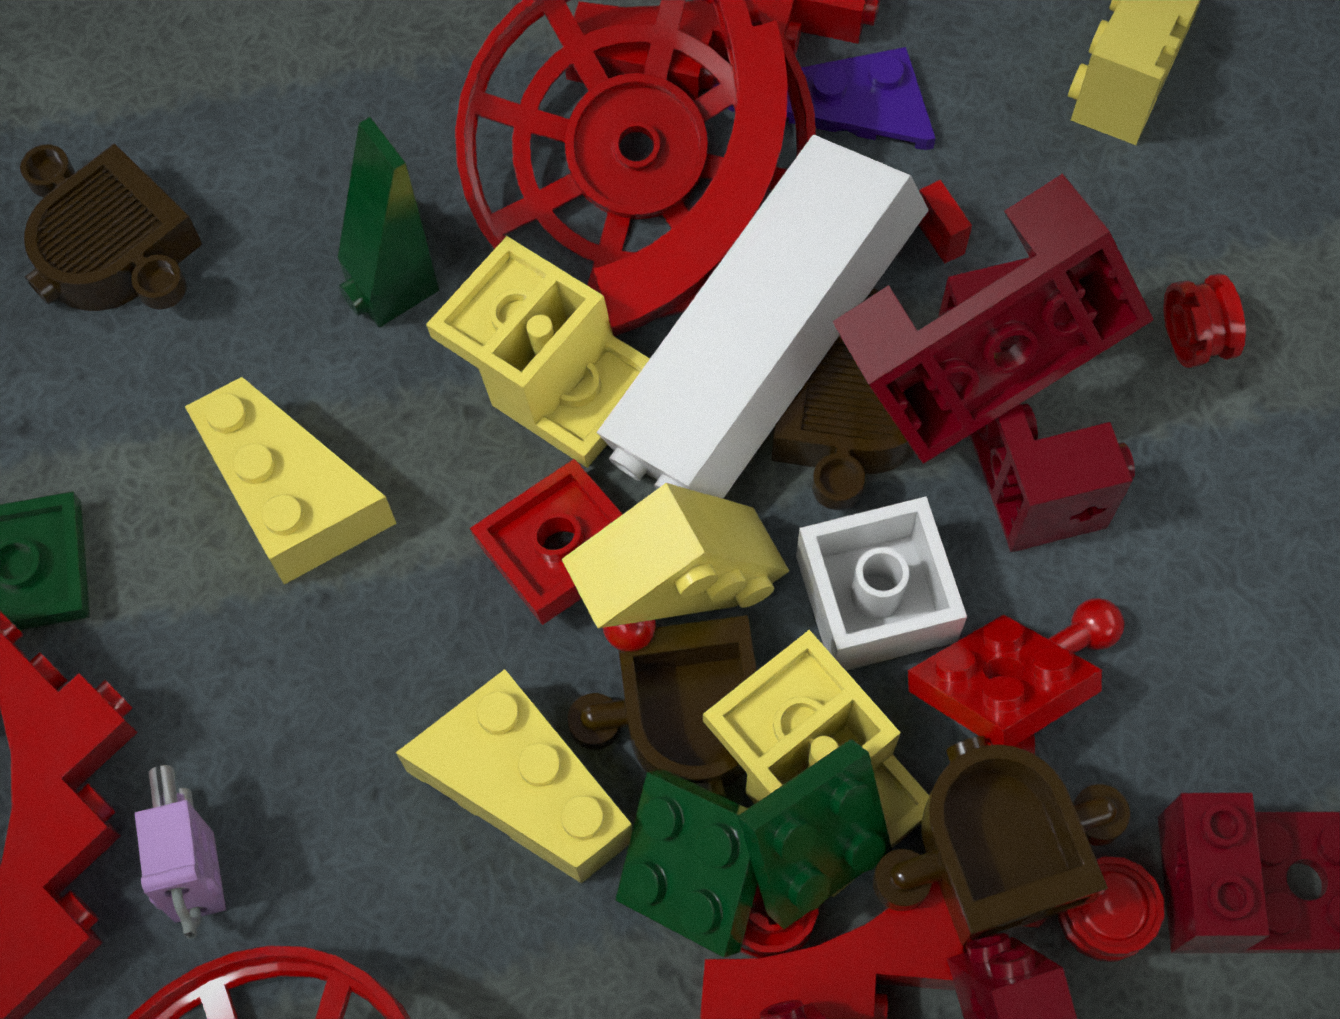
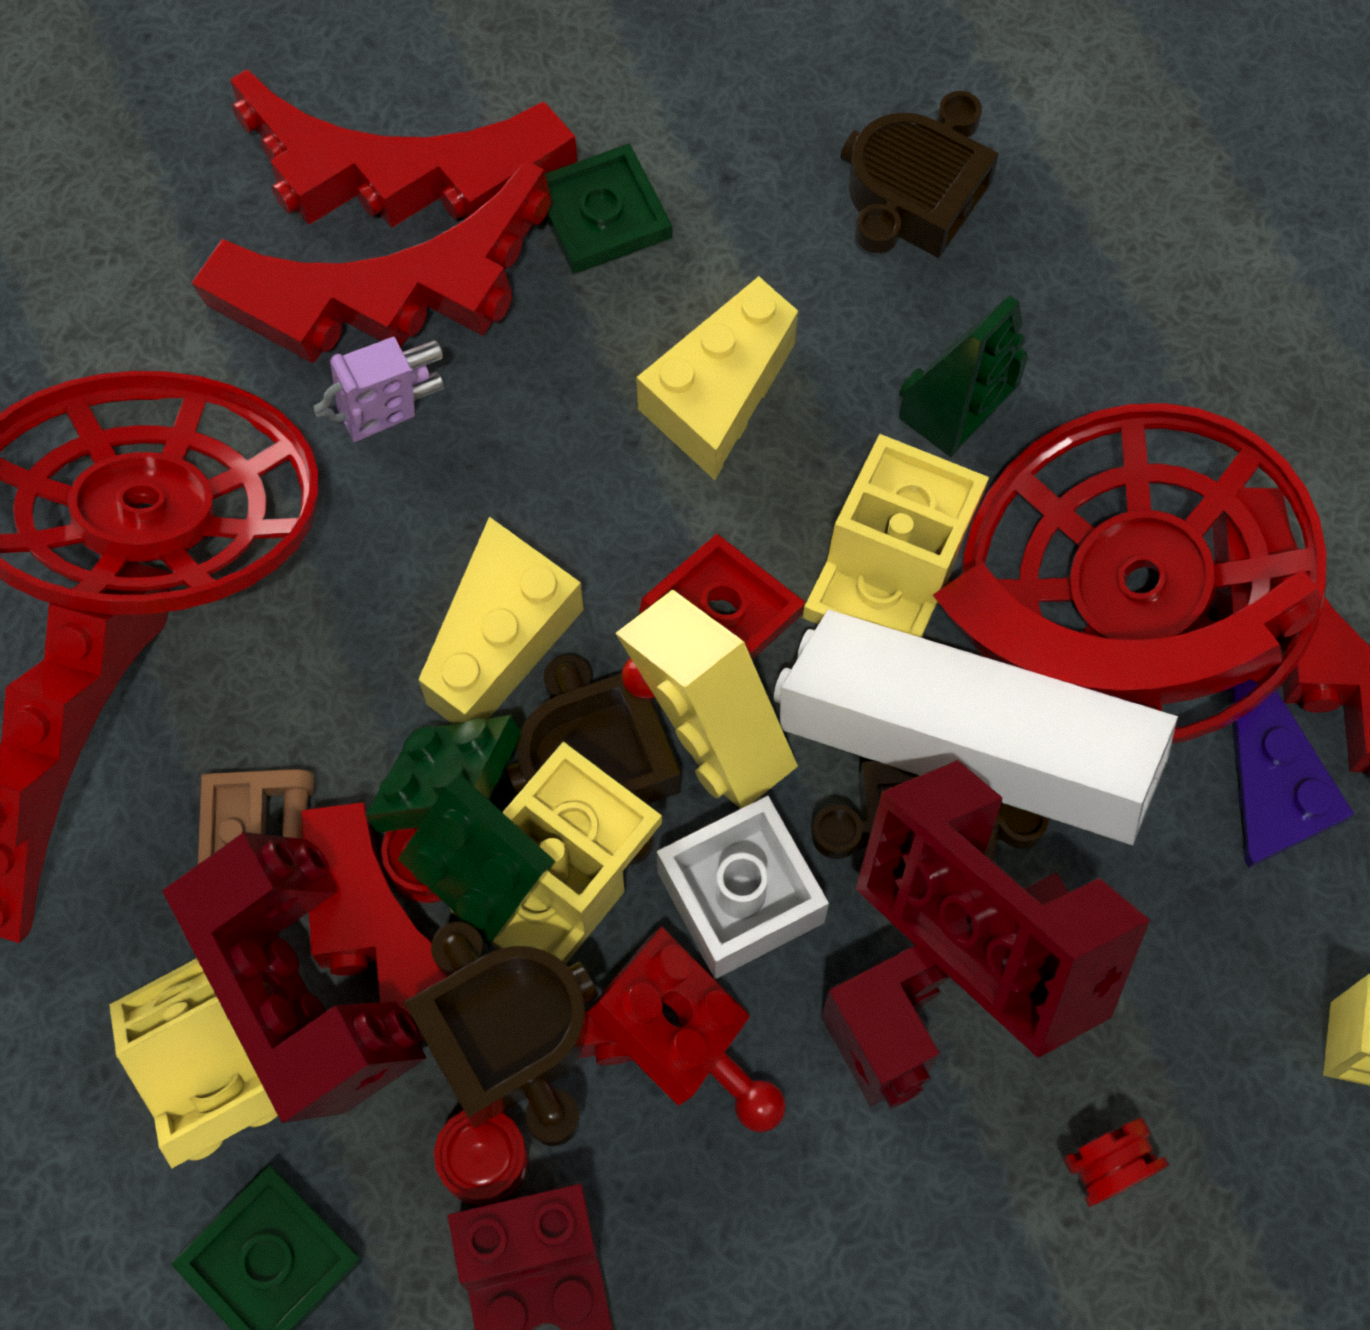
camera: 75 degrees right, 0 degrees up
(944, 222) = (1157, 880): red tile -> none

